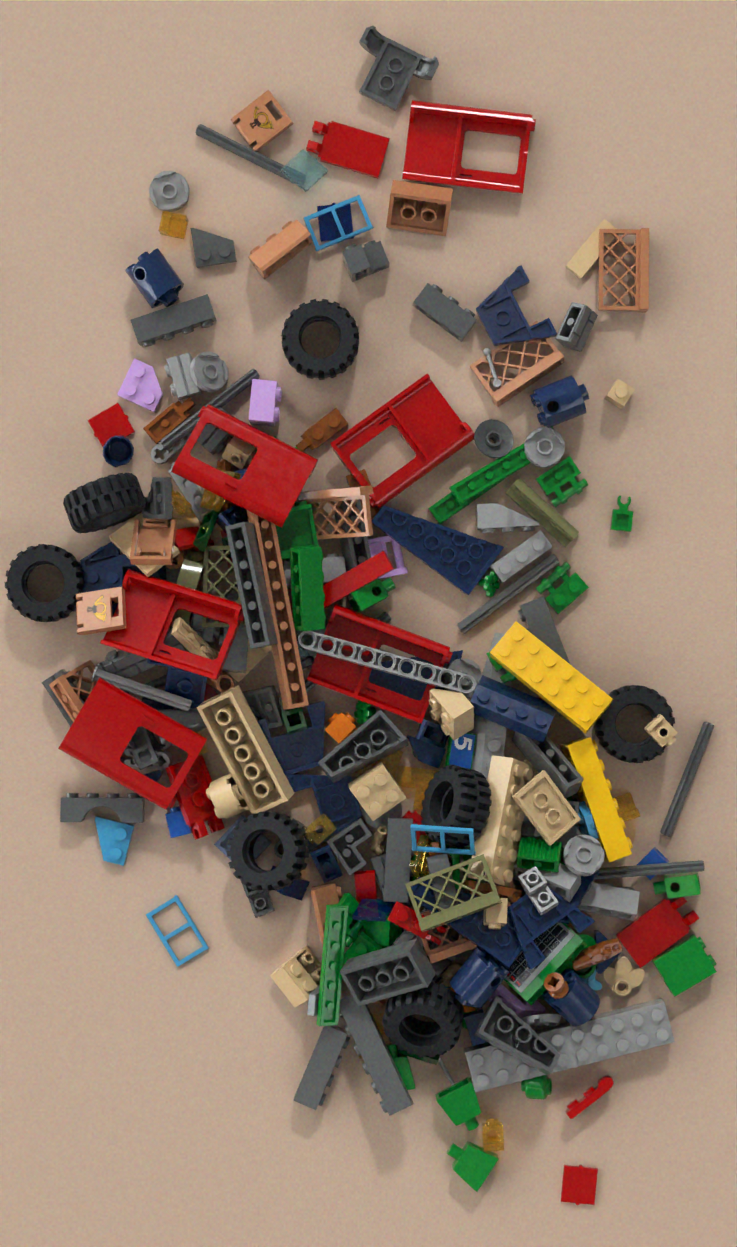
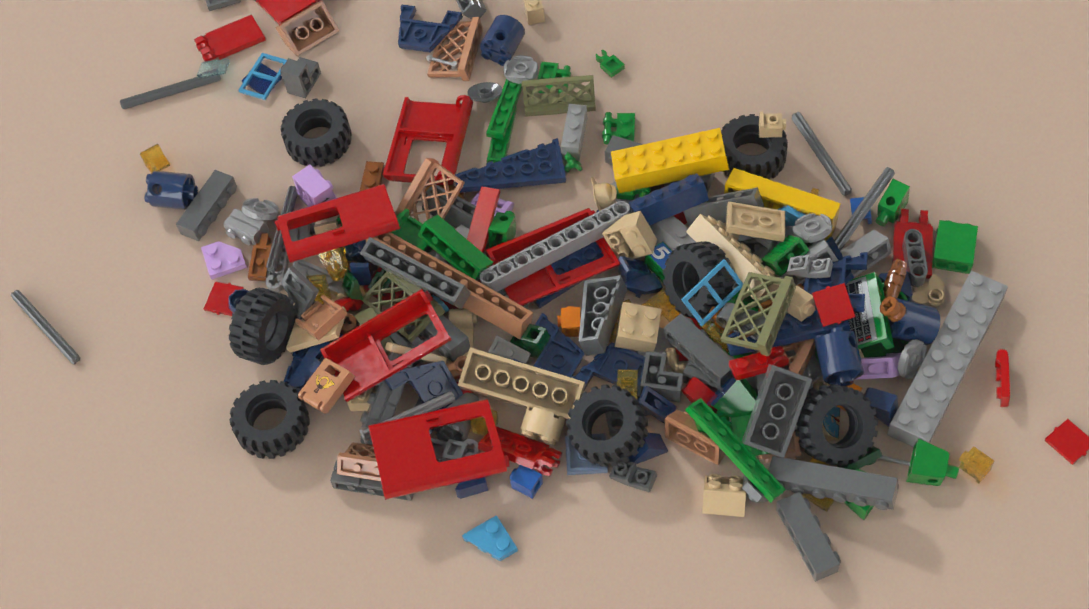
camera: 45 degrees left, 30 degrees down
(129, 808) = (479, 506): dark grey arch -> none
(169, 191) = (130, 147): light grey tile -> none
(189, 923) = (601, 570): dark azure window -> none
(212, 249) = (194, 153): dark grey wing -> none
(259, 124) = (158, 70): nougat container -> none
(280, 248) = (240, 113): nougat slope -> none
(363, 712) = (574, 297): green plant -> none
(445, 311) = (380, 61): dark grey brick -> none
(472, 1163) = (986, 496): green torso -> none
(478, 645) = (604, 194): none -> tan piece
(497, 516) = (536, 125): light grey slope -> none
(508, 593) = (590, 158): dark grey axle -> none
(512, 944) = (833, 305): none -> red piece
(512, 1035) = (911, 371): dark grey wedge -> none
(537, 1087) = (962, 404): green head -> none
(638, 956) = (915, 249): none -> dark grey beam

